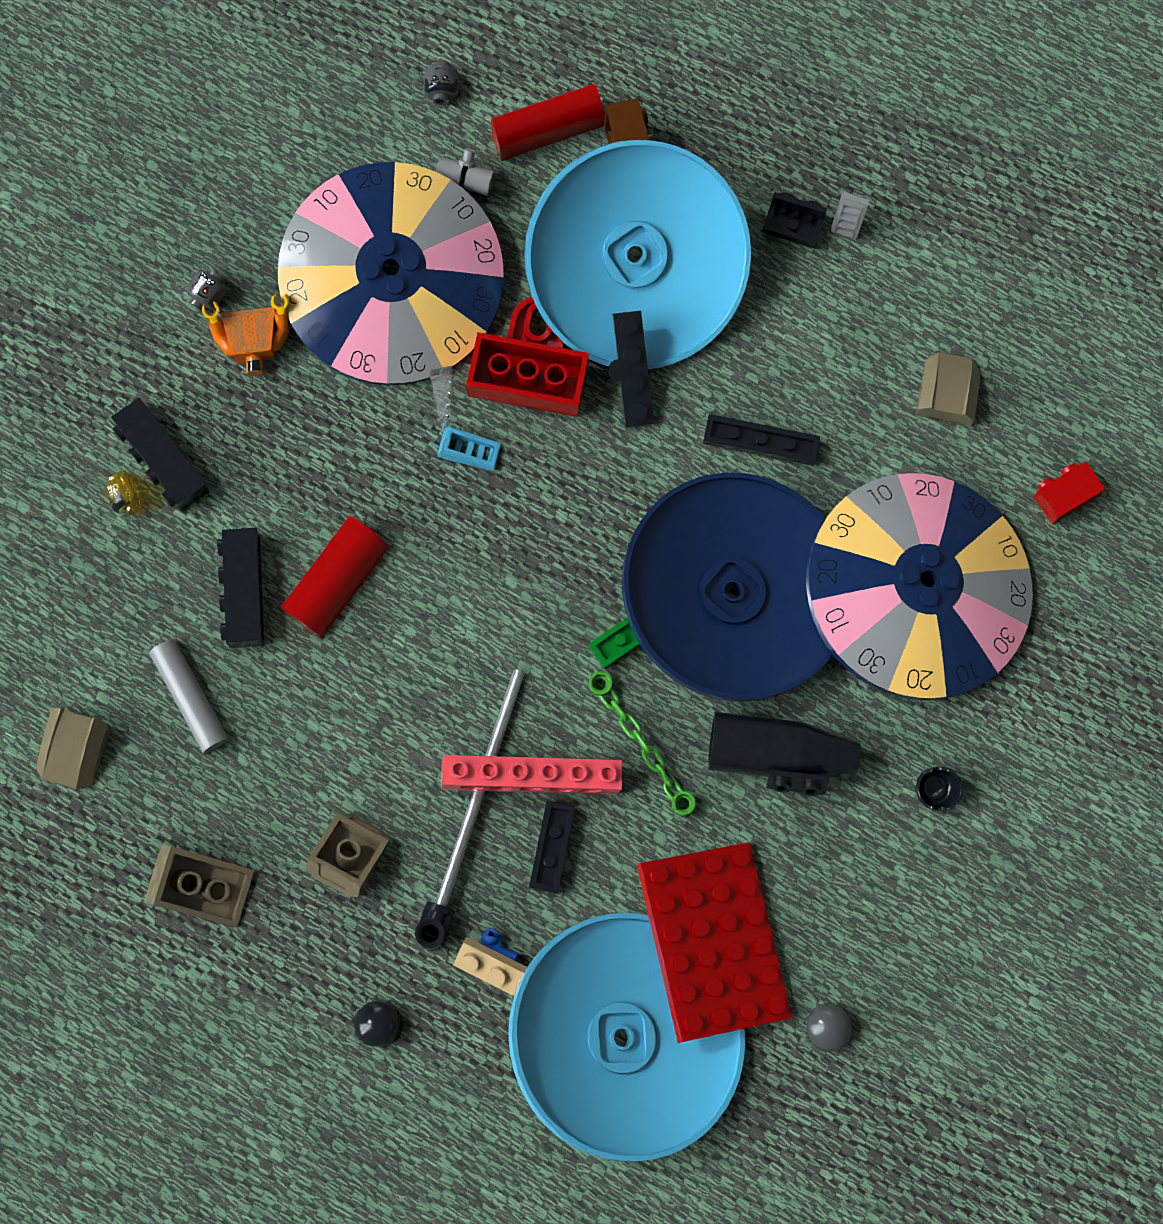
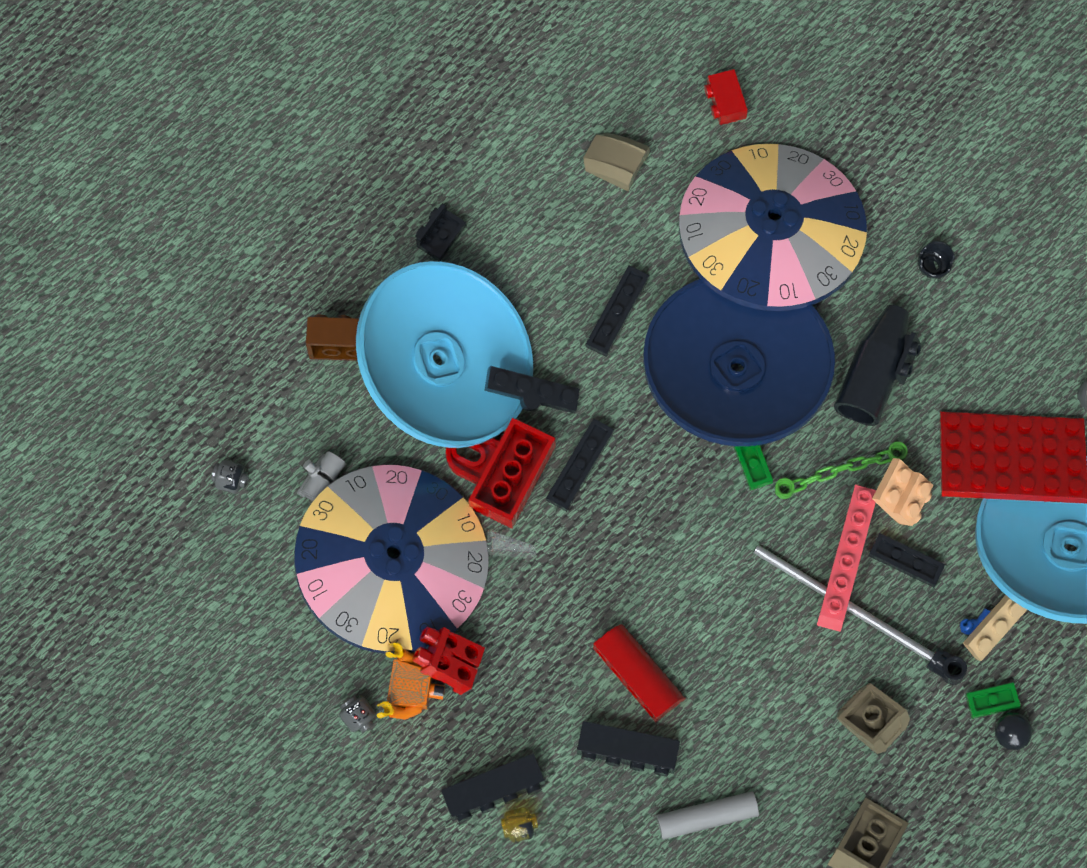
camera: 70 degrees left, 5 degrees down
(292, 354) = (449, 658): none -> red hips
(407, 990) = (992, 700): none -> green plate
(456, 456) = (551, 552): medium azure slope -> none
(547, 122) = (296, 399): red brick -> none
(562, 448) = (580, 465): none -> black plate
(630, 820) = (903, 493): none -> light nougat plate
(849, 215) = (451, 188): light grey slope -> none

